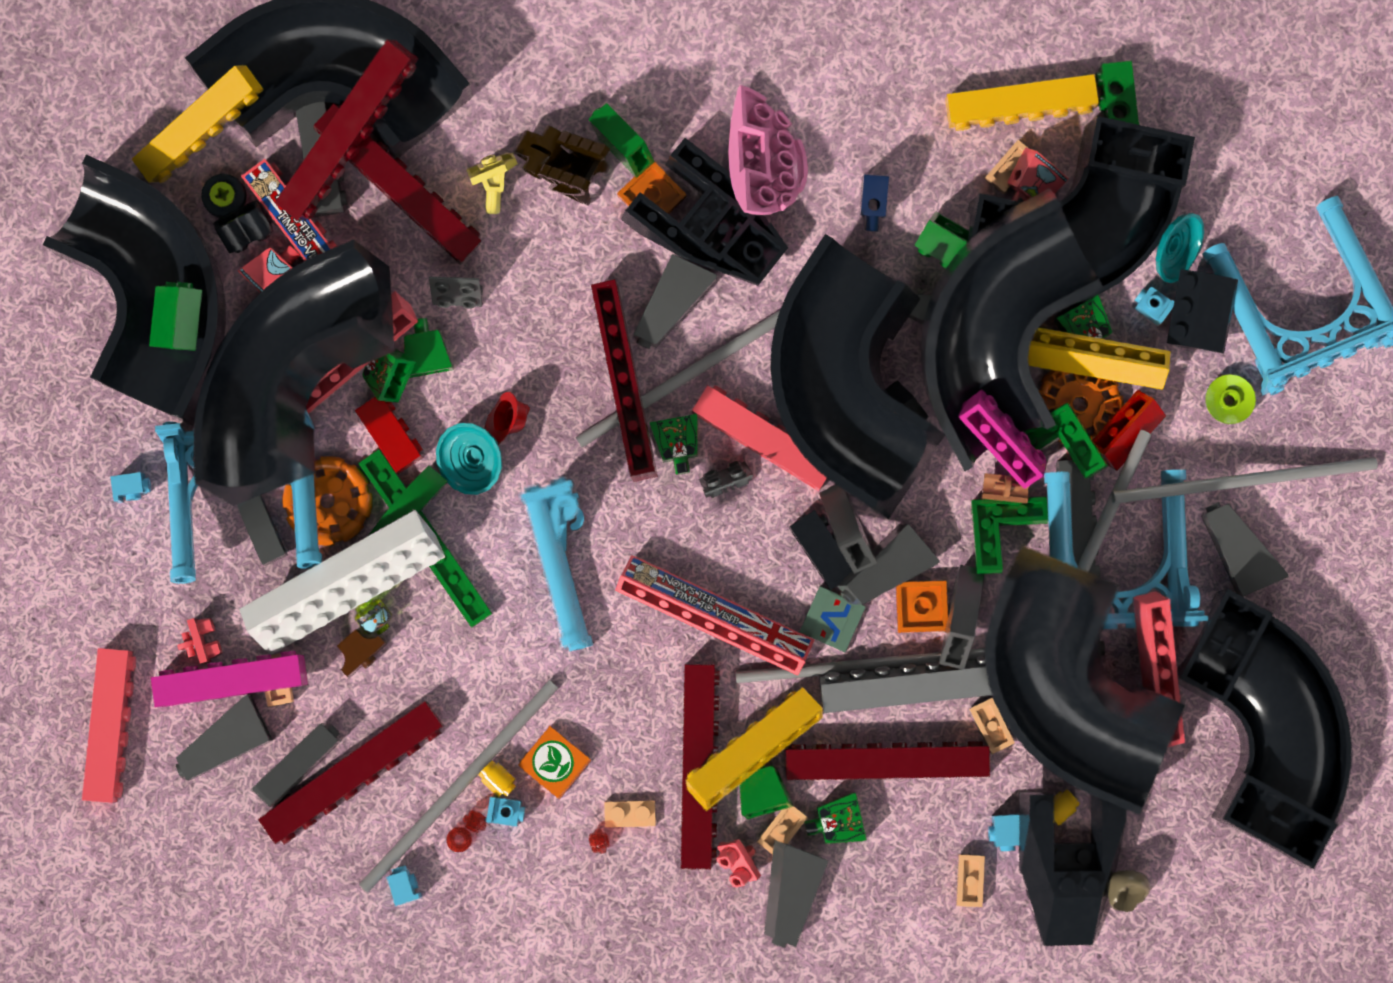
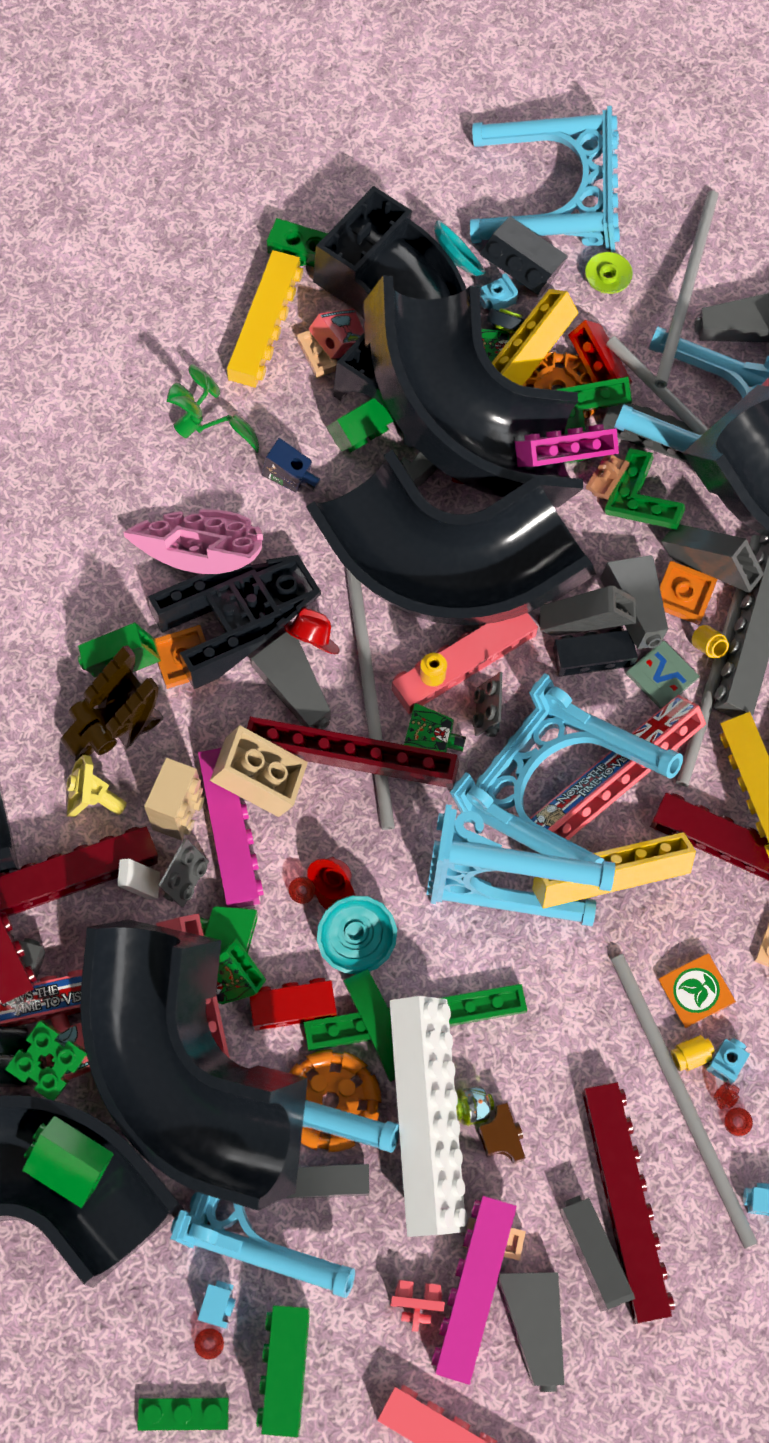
camera: 70 degrees left, 15 degrees down
(42, 499) = (183, 1414): none -> green plate
(92, 494) = (199, 1343): none -> clear red plate
(102, 561) = (285, 1371): none -> green brick
(257, 250) = (29, 1064): none -> green brick
(433, 257) = (138, 879): none -> white tile
(484, 395) = (295, 893): none -> clear red plate
(510, 253) = (174, 799): none -> tan brick
(515, 309) = (231, 838): none -> dark pink brick
(569, 310) = (259, 771): none -> tan brick
(624, 651) = (634, 866): none -> yellow brick
(636, 510) = (551, 711): none -> medium azure arch
(722, 296) = (314, 629): none -> red piece
(725, 423) = (433, 669): none -> yellow brick
(880, 84) = (192, 419): none -> green plant
(880, 648) = (710, 641): none -> yellow brick
(1125, 325) = (505, 320): none -> black wheel

